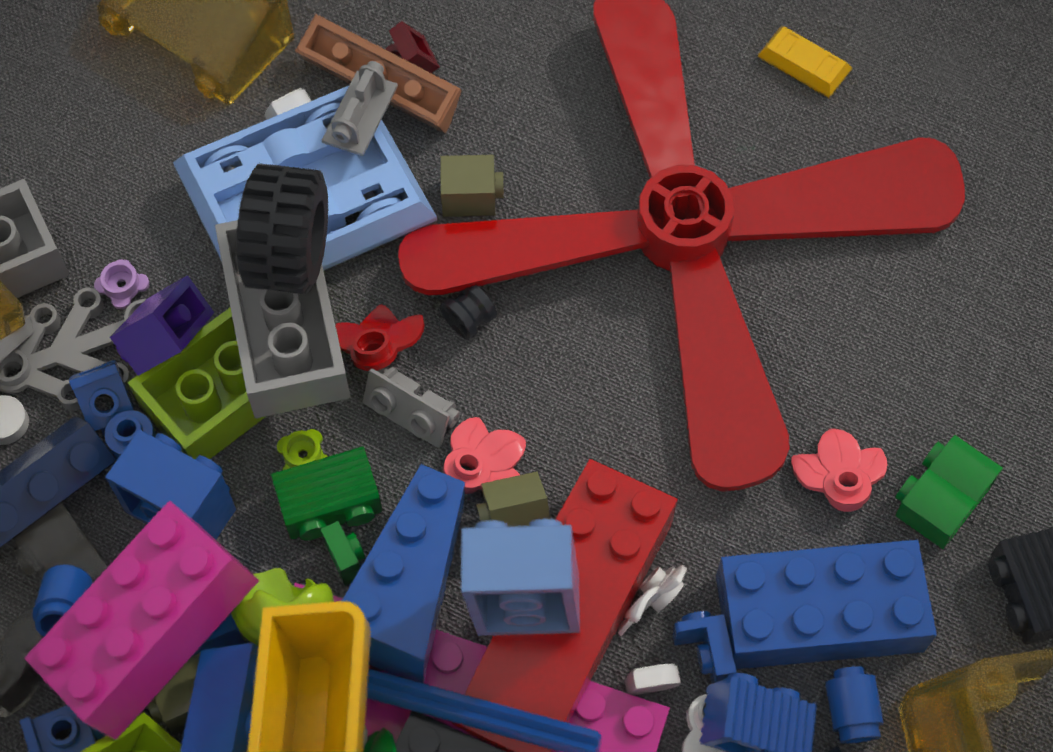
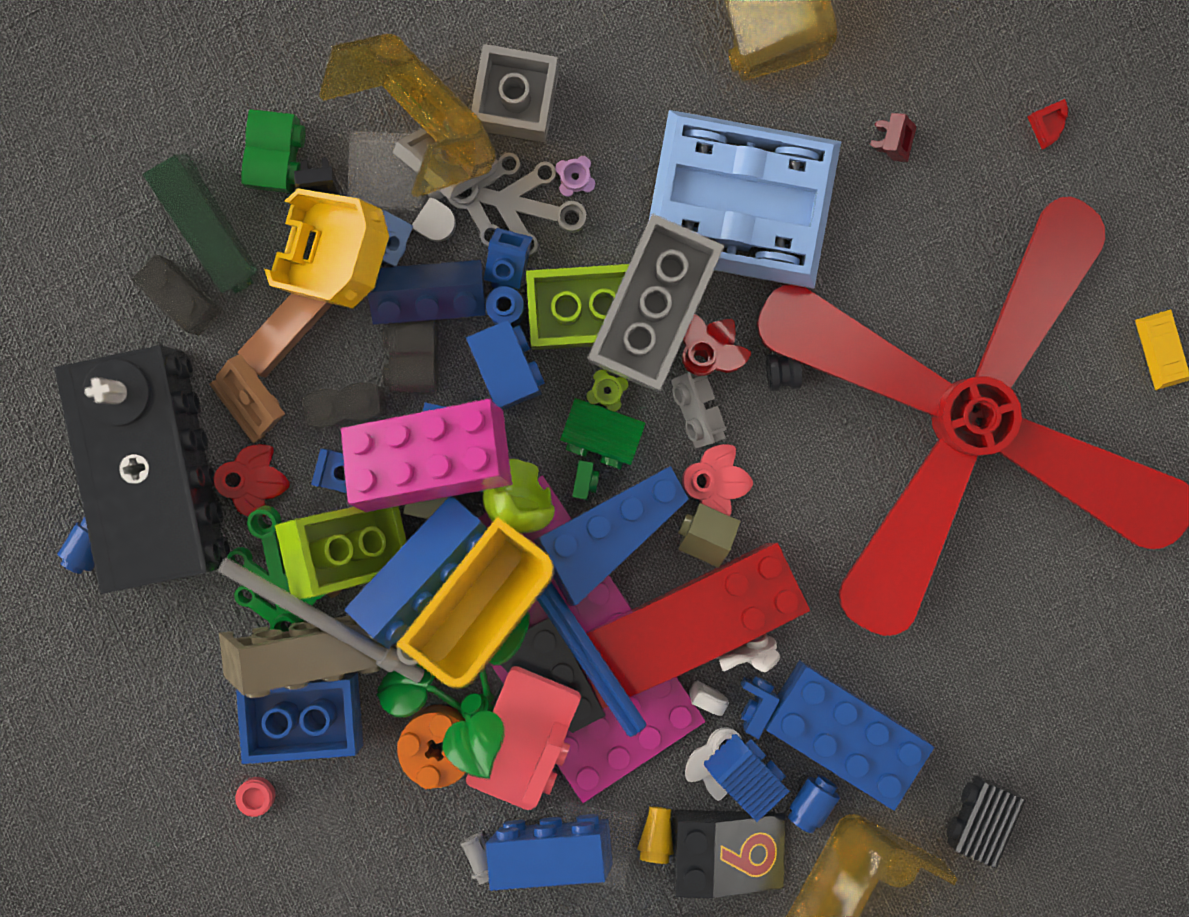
camera: 40 degrees right, 25 degrees up
(57, 594) = (389, 396): blue brick -> none
(162, 325) = (574, 247): dark purple brick -> none
(282, 228) = (687, 270): black tyre -> none
(287, 102) = (778, 119): white tile -> none
(344, 53) = (860, 140): nougat slope -> none
(360, 110) = (820, 175): light grey hinge -> none
(469, 185) = (855, 278): olive brick -> none
(521, 578) = (666, 617): medium blue brick -> none
(840, 464) = (934, 650): coral plate -> none
(947, 490) = (984, 722): green brick -> none

